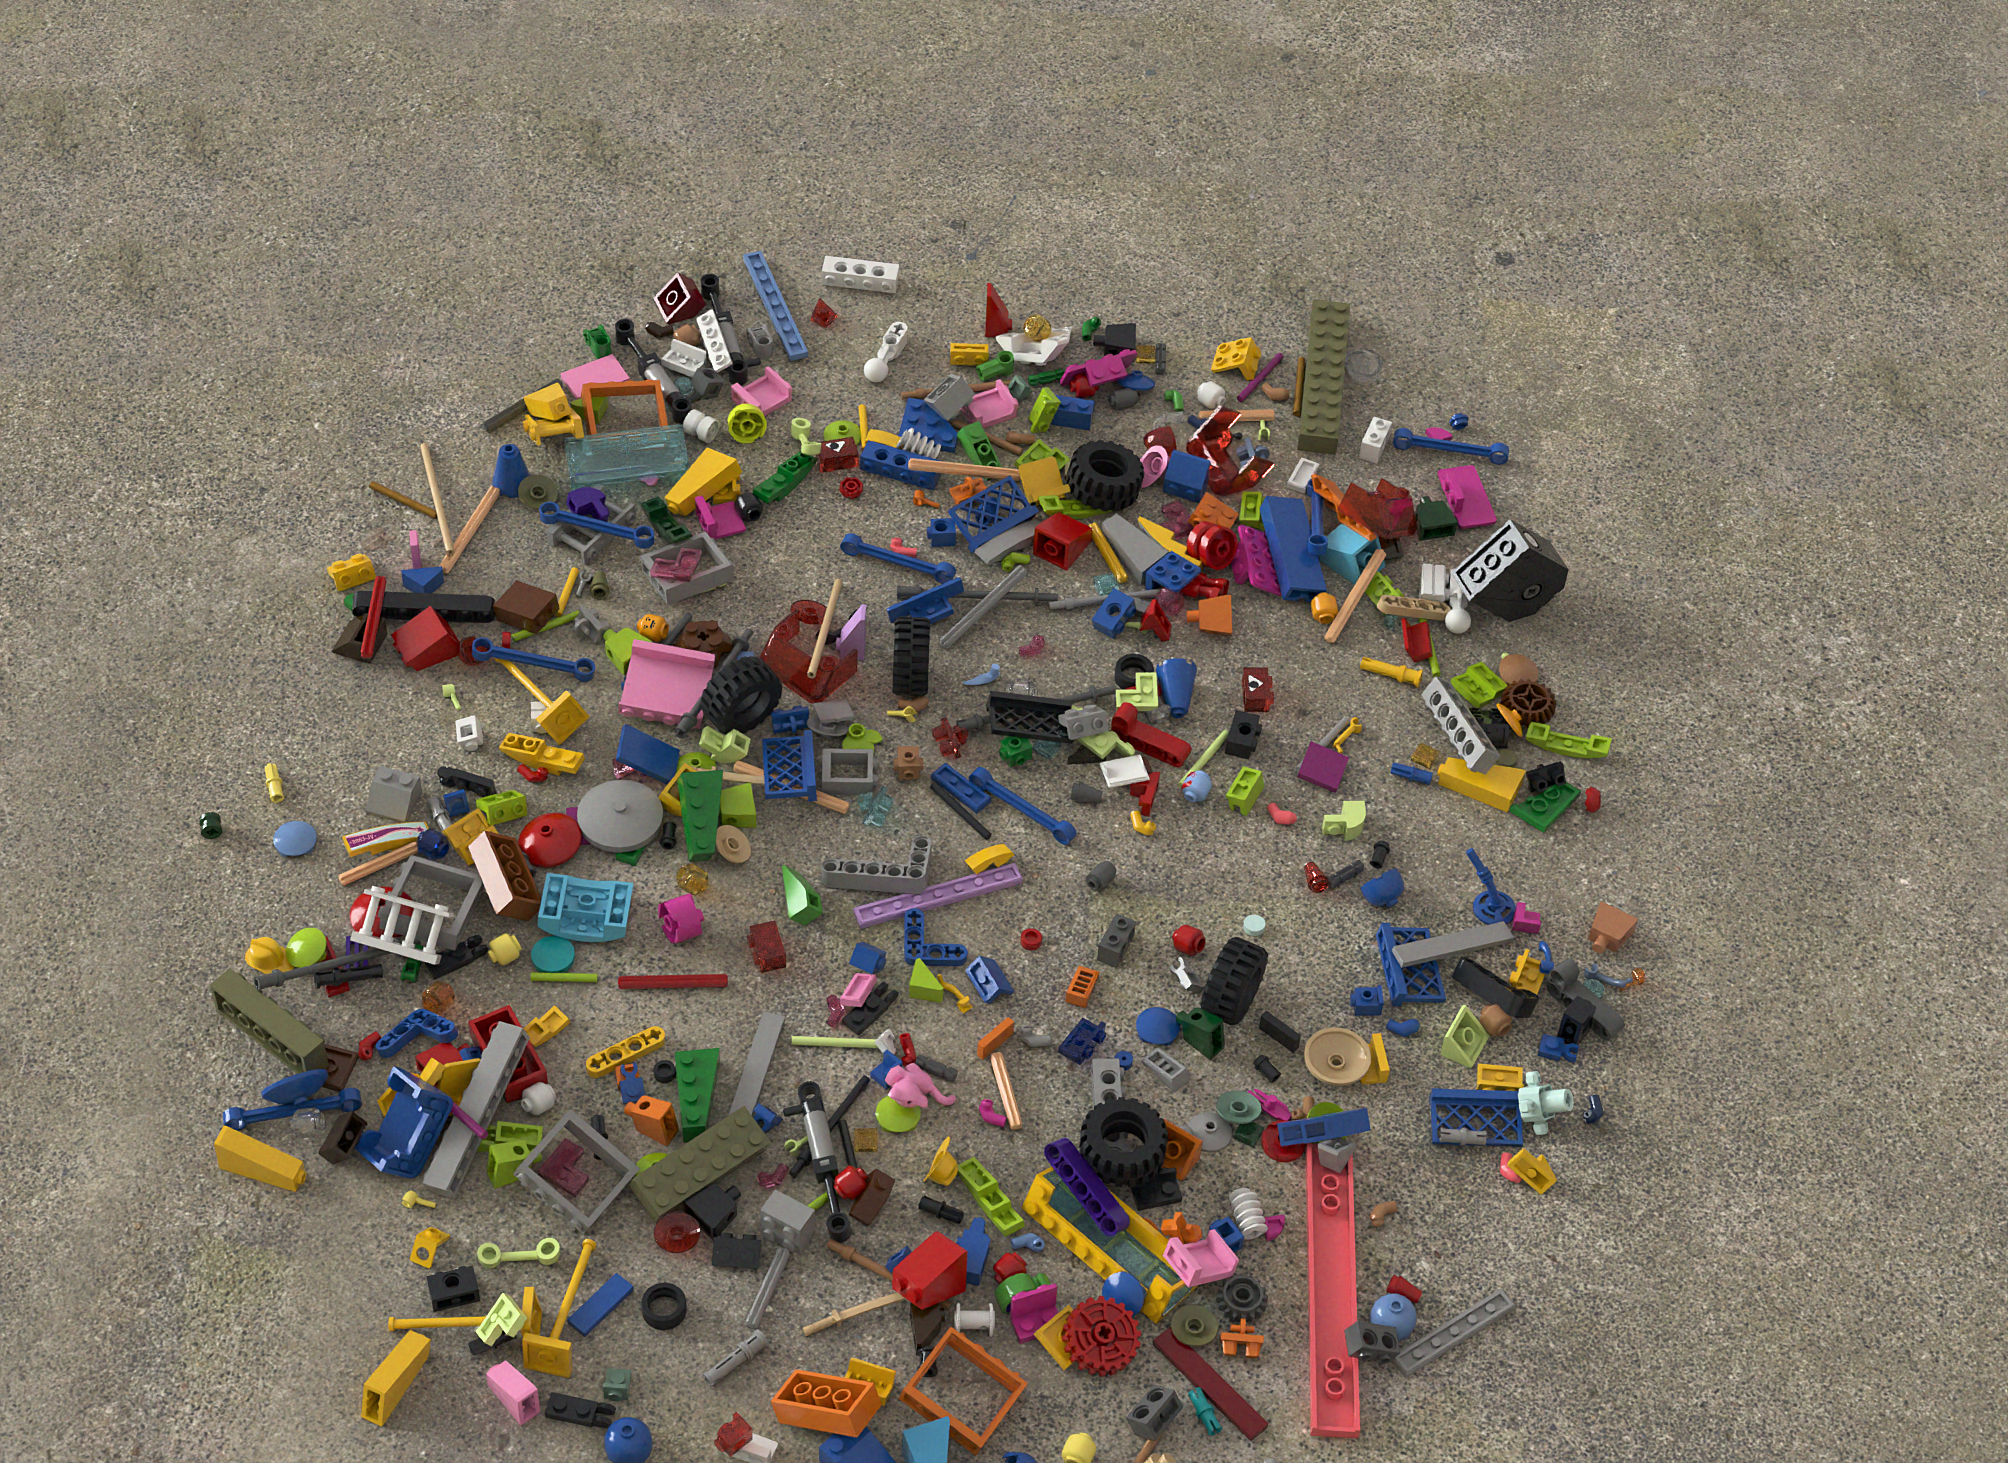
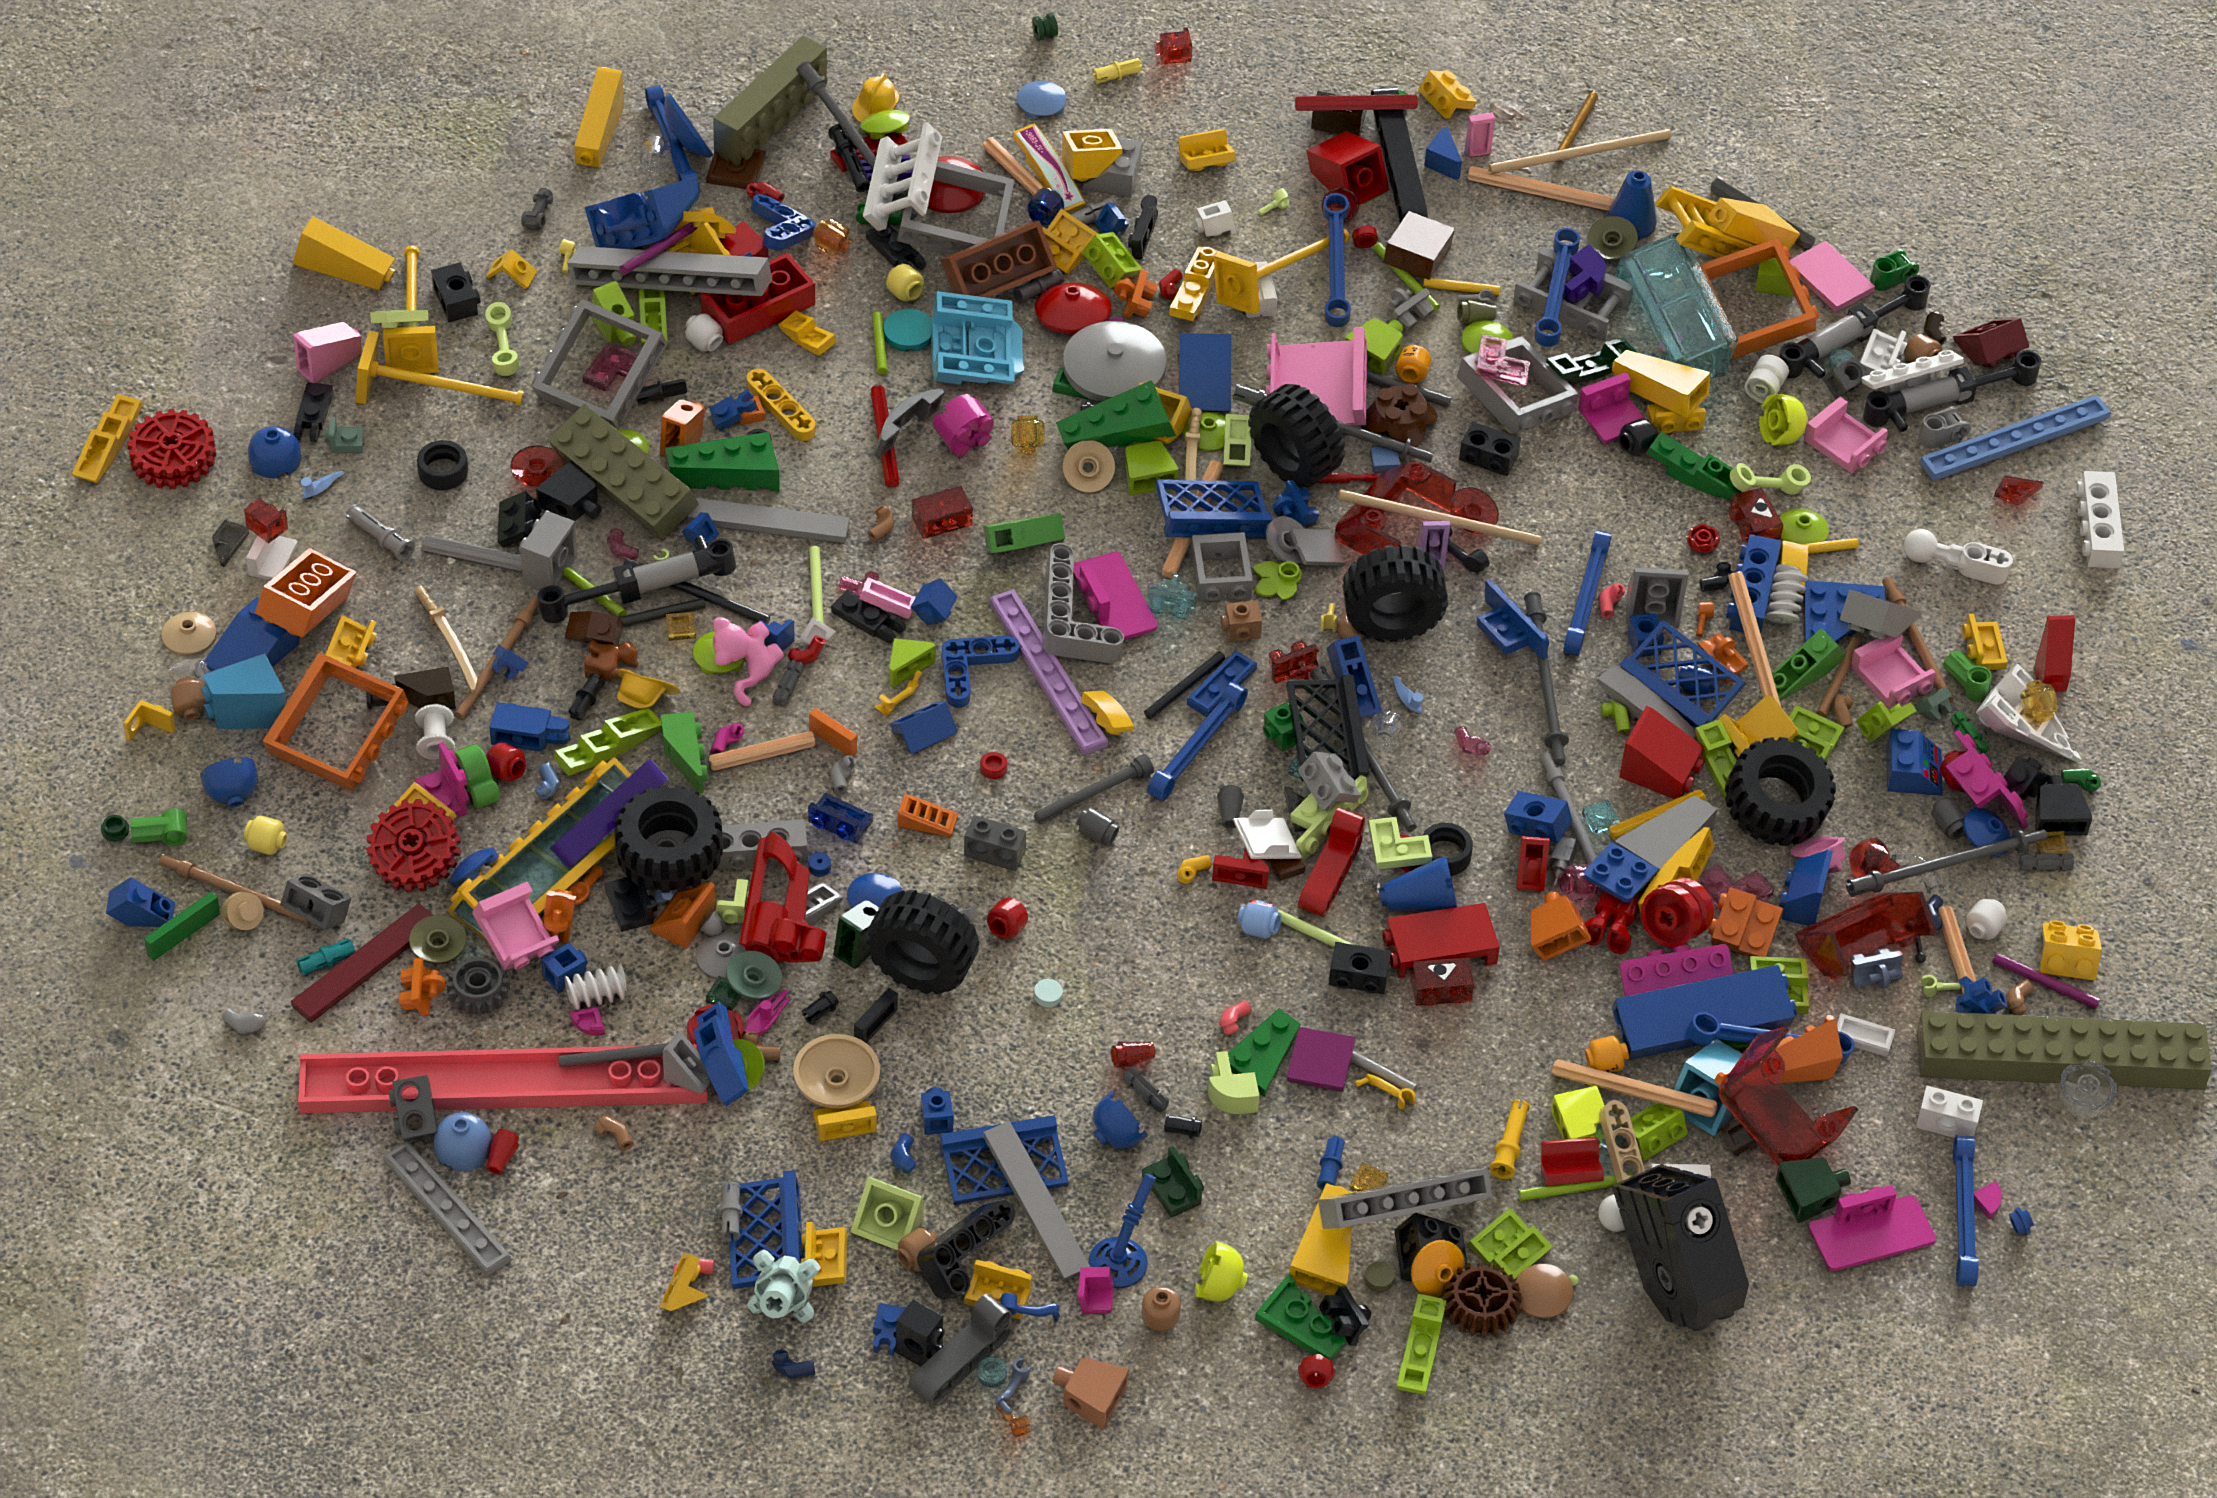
camera: 85 degrees right, 0 degrees up
(257, 738) = (1174, 47): none -> clear red brick
(342, 1137) = (632, 178): dark brown brick -> none
(367, 1225) = (536, 219): none -> dark grey bar
(382, 802) = (1089, 152): none -> yellow slope
(388, 731) = (1205, 149): none -> yellow bracket
(544, 795) = (1133, 291): none -> orange hips
(600, 1304) = (445, 416): blue tile -> none
(627, 584) = (1473, 332): none -> lime dish
(669, 1407) = (316, 487): none -> light blue bar
(685, 971) = (918, 405): none -> dark grey slope
(747, 595) = (1489, 448): none -> black brick
(770, 988) = (884, 523): none -> medium nougat arm
(851, 1182) = (606, 600): red head -> none
(869, 843) = (1114, 595): none -> dark pink bracket
(889, 485) = (1719, 580): none -> black arm
(903, 1191) = (606, 657): none -> dark orange animal
(915, 515) = (1658, 593): none -> light grey slope
(932, 1272) = (480, 676): red slope -> none
(960, 703) = (1349, 659): none -> blue slope
(983, 606) = (1520, 681): light grey axle -> none
(1000, 1142) = (682, 747): none -> bright green slope
(1043, 845) = (1139, 767): none -> dark grey piece
(1094, 349) = (2025, 777): none -> black brick
(1167, 1111) = (734, 911): none -> yellowish green bracket
(1175, 397) = (1973, 878): bright green arm -> none
(1185, 440) = (1875, 881): none -> dark grey bar
(1199, 1085) = (778, 928): none -> red panel
(1220, 684) = (1441, 935): none -> red panel
(1245, 789) = (1263, 972): lime hinge -> none
(1284, 409) = (1979, 997): none -> blue hips
(1309, 800) = (1265, 1049): none -> green wing
(1317, 1202) = (611, 1055): none -> dark grey bar
(1378, 630) = (1577, 1112): none -> neon yellow piece
(1429, 865) = (1175, 1183): none -> dark green bracket
(1514, 844) = (1221, 1273): none -> neon yellow cylinder
(1544, 880) = (1161, 1308): none -> medium nougat head

